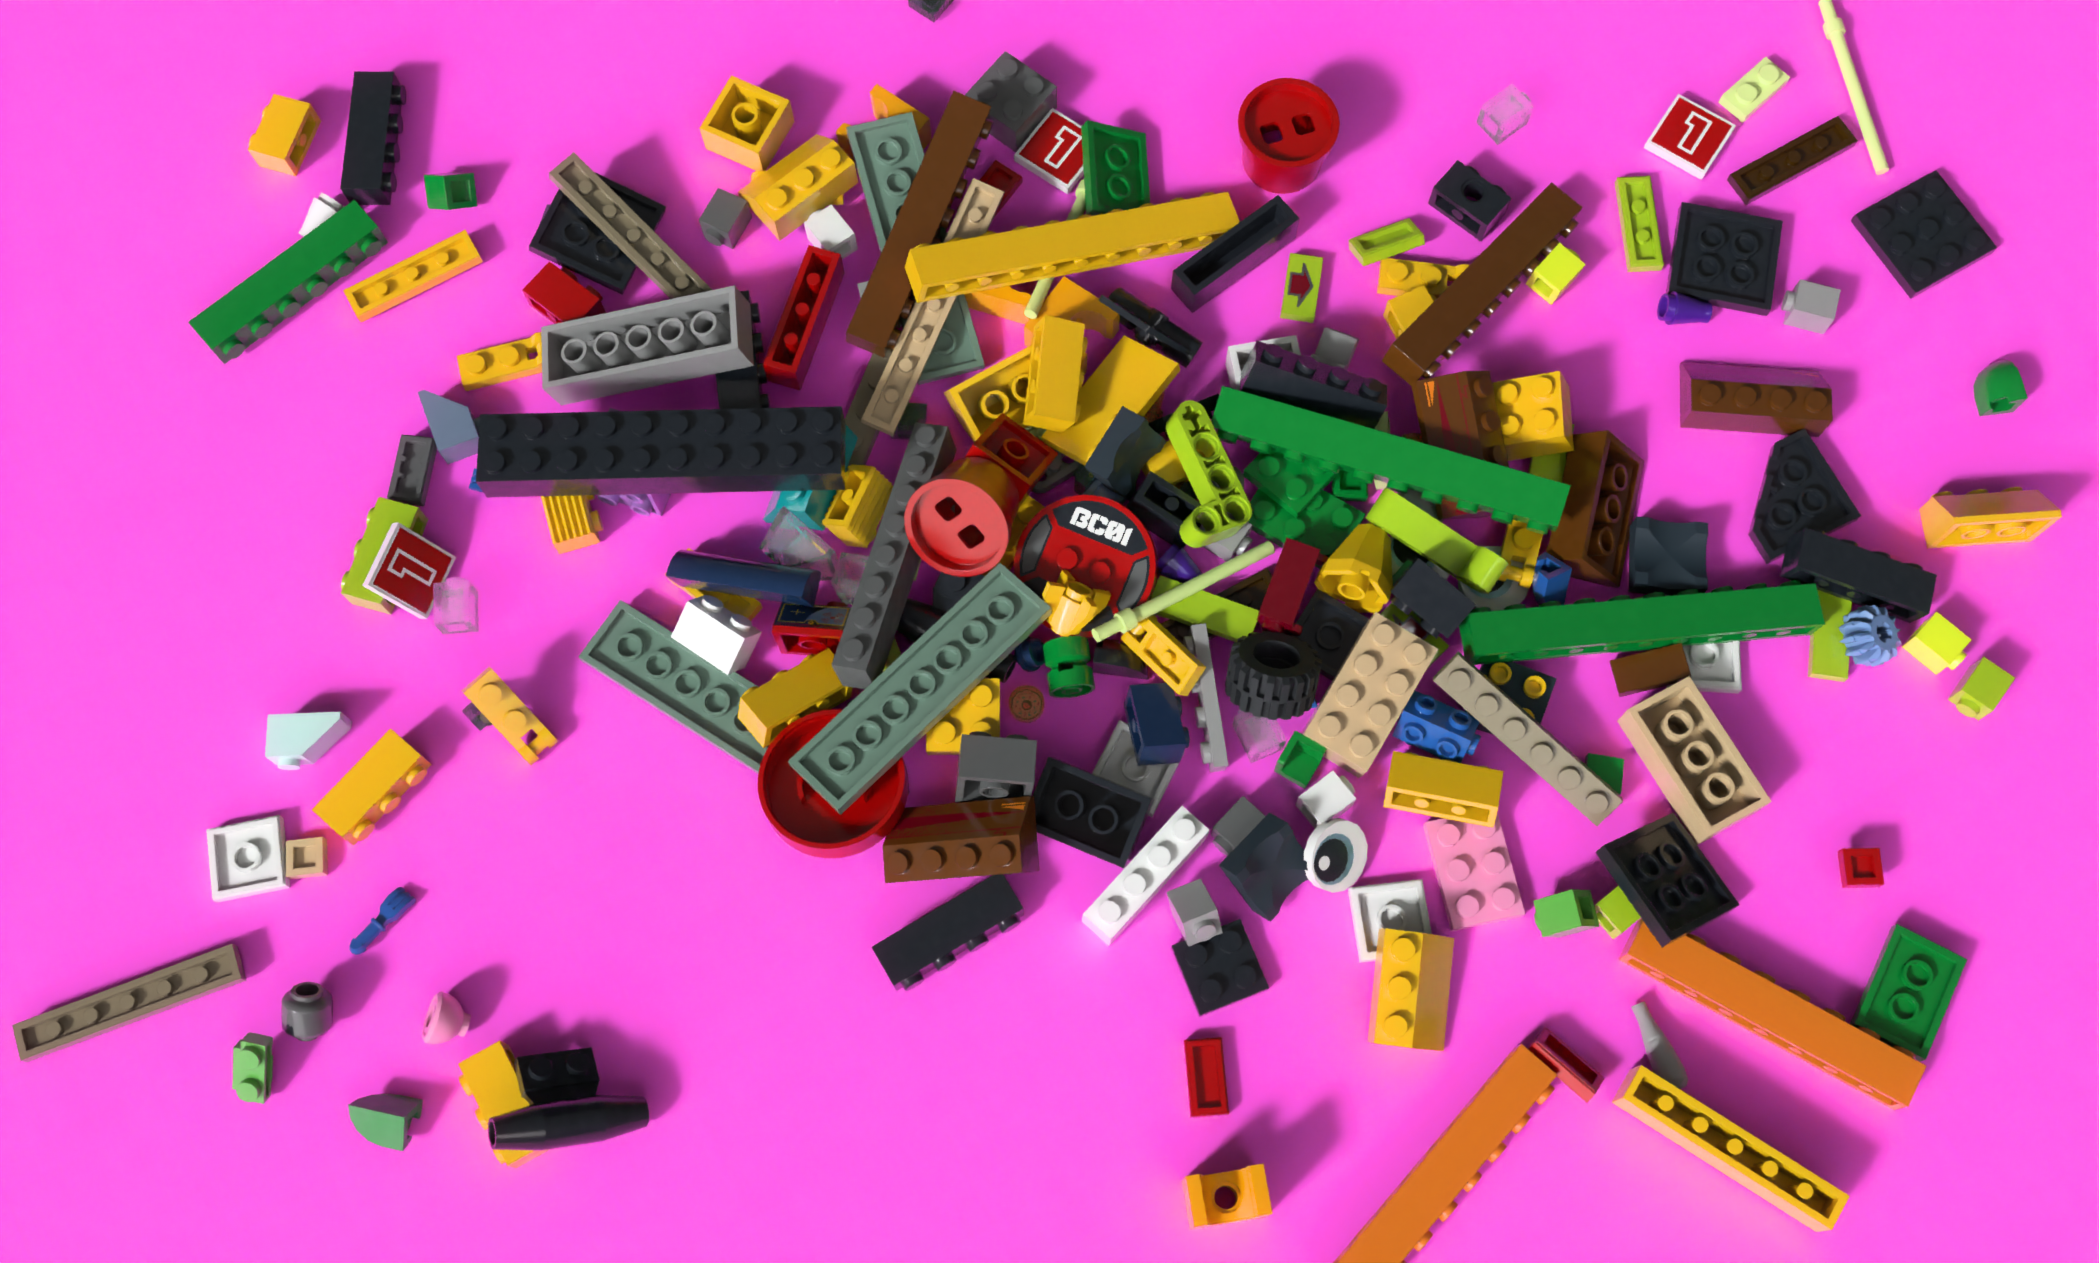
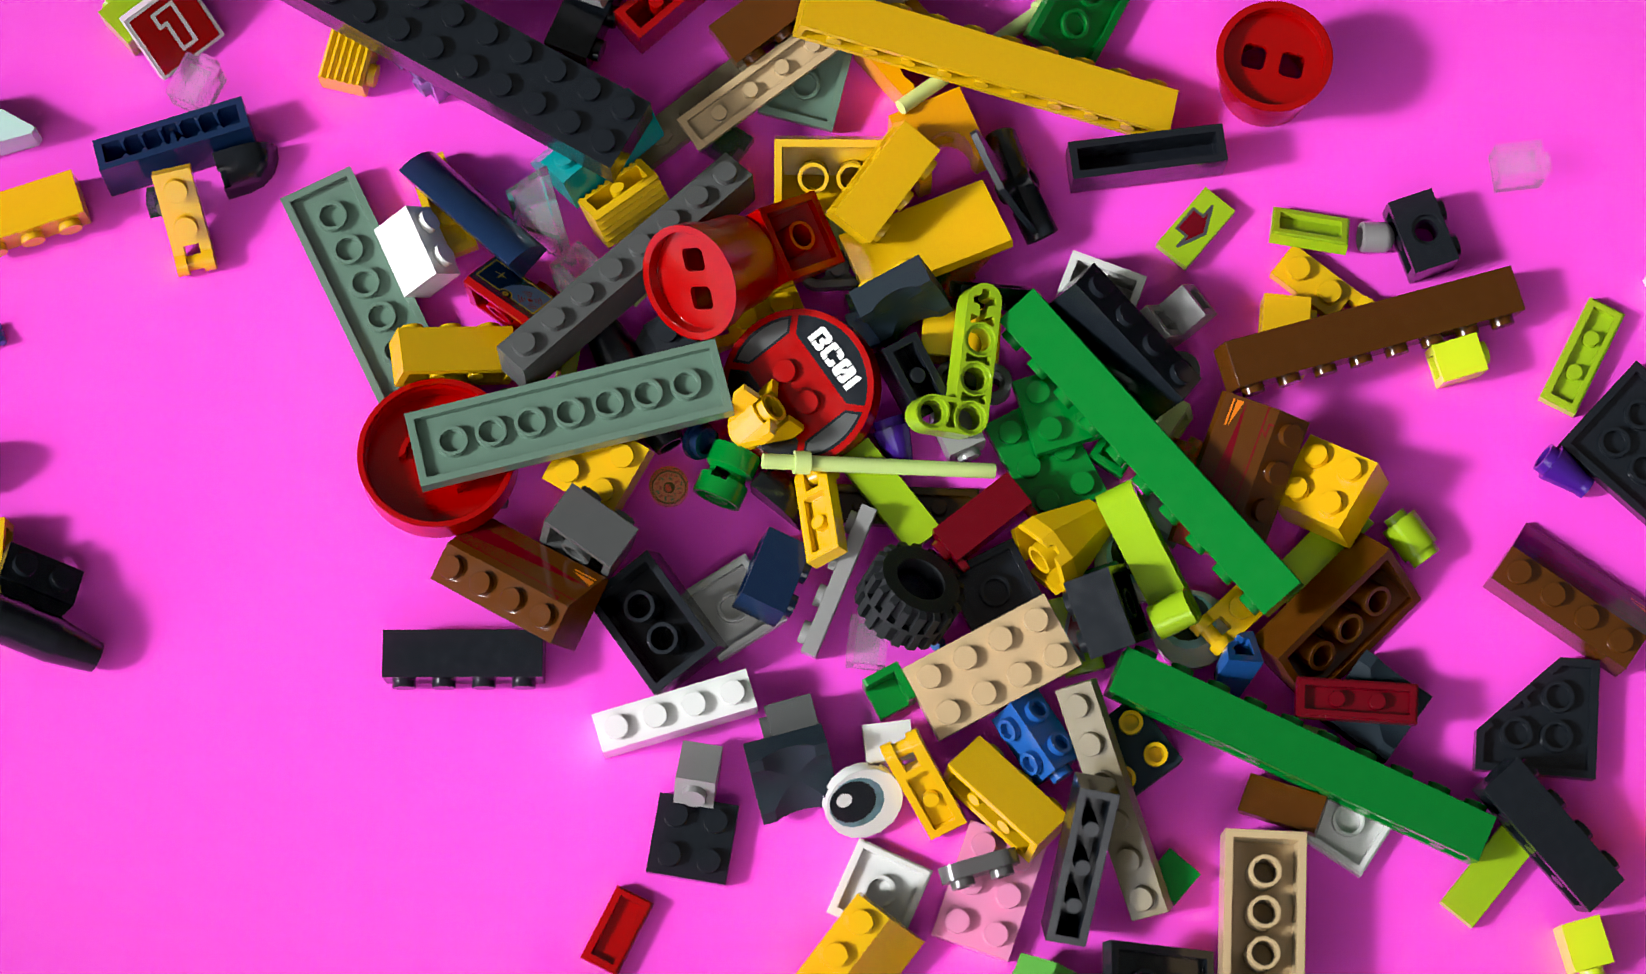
camera: 30 degrees right, 5 degrees up
(485, 642) = (190, 137): none -> dark blue brick
(534, 648) = (246, 167): none -> black brick
(1376, 814) = (923, 785): none -> yellow plate
(1436, 220) = (1374, 237): none -> light grey piece
(1452, 866) = (996, 863): none -> dark grey plate
(1536, 798) = (1080, 859): none -> black brick
(1608, 416) = (1410, 537): none -> lime brick
(1656, 558) = (1356, 701): none -> dark red tile
(1870, 635) = (1519, 899): medium blue gear -> none

